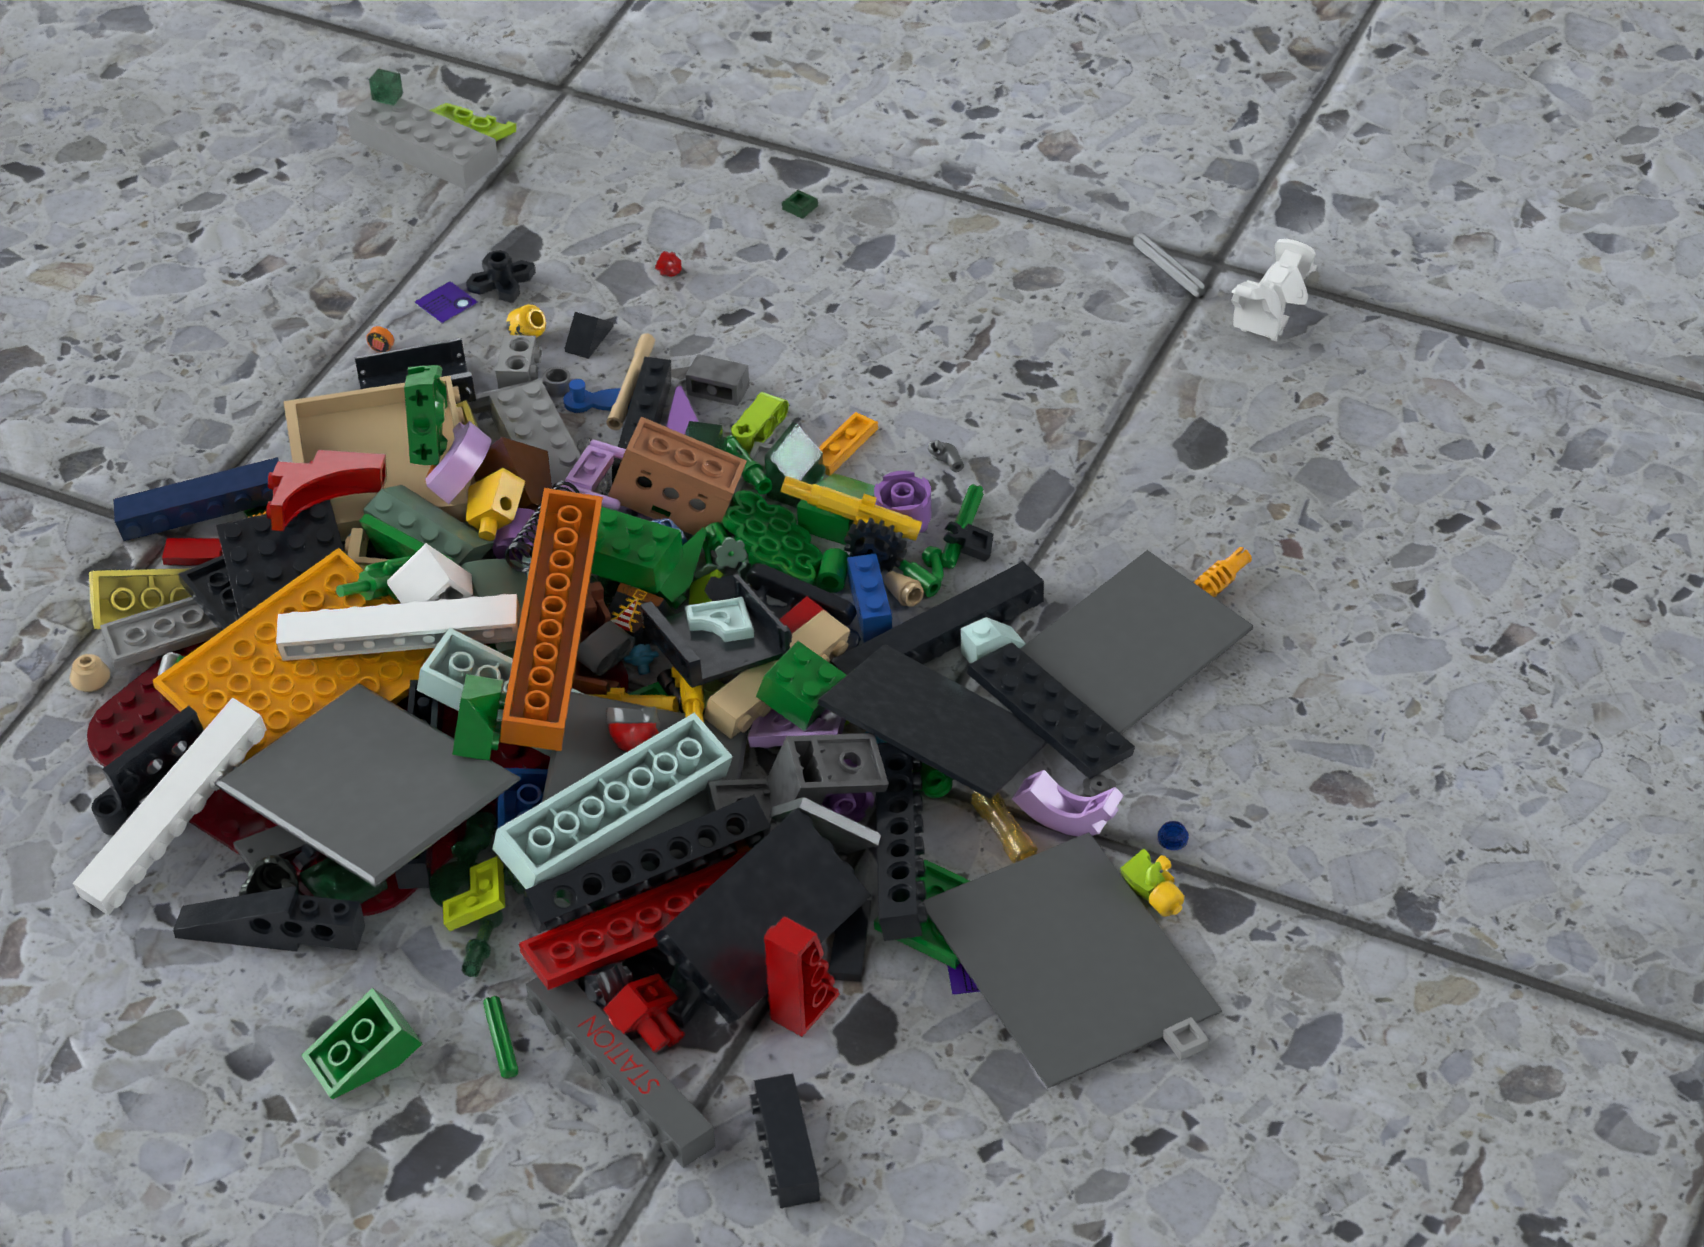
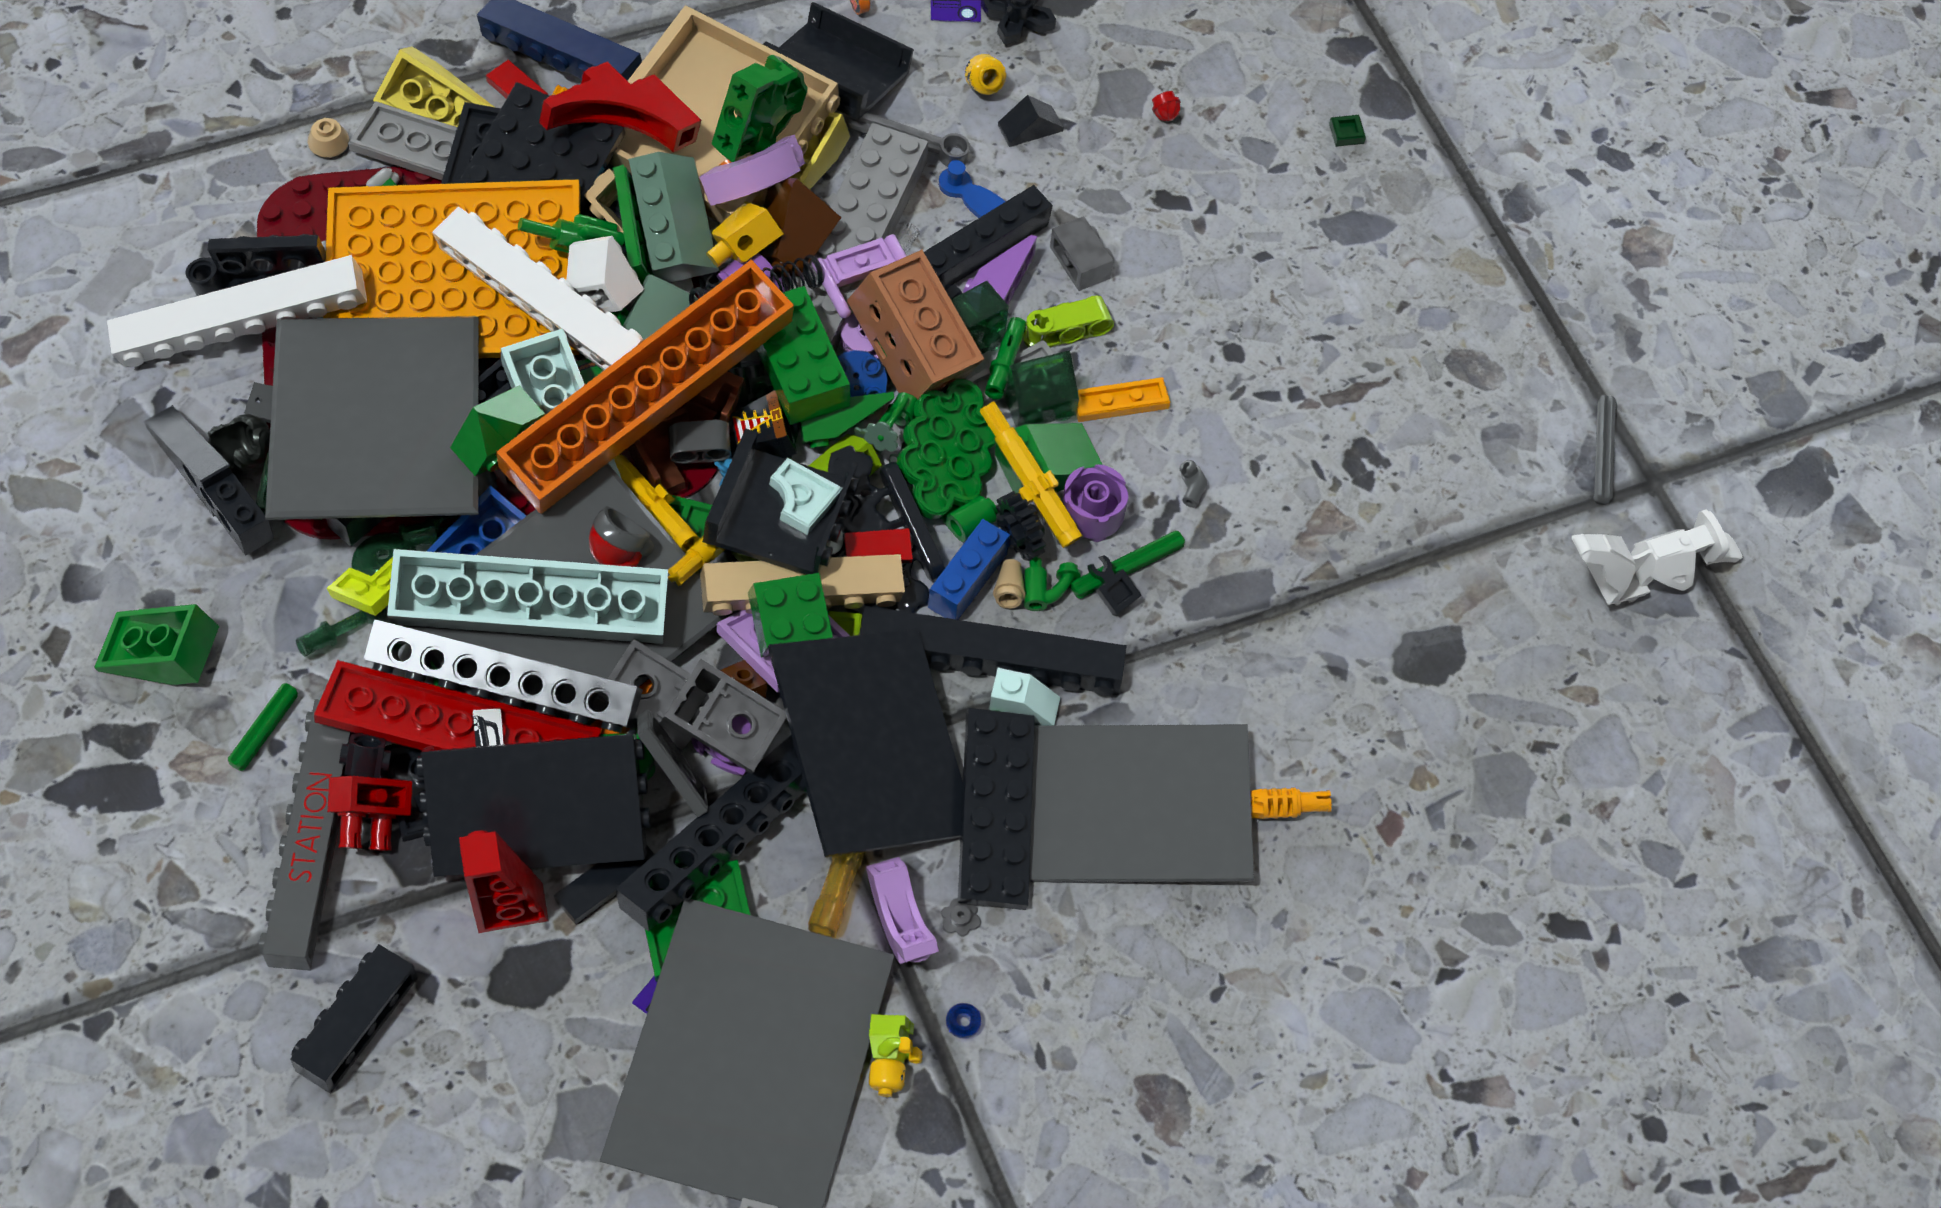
camera: 35 degrees right, 15 degrees up
(517, 360) = (940, 106): light grey brick -> none
(620, 408) = (1049, 178): tan piece -> none
(671, 902) = (488, 727): none -> sticker

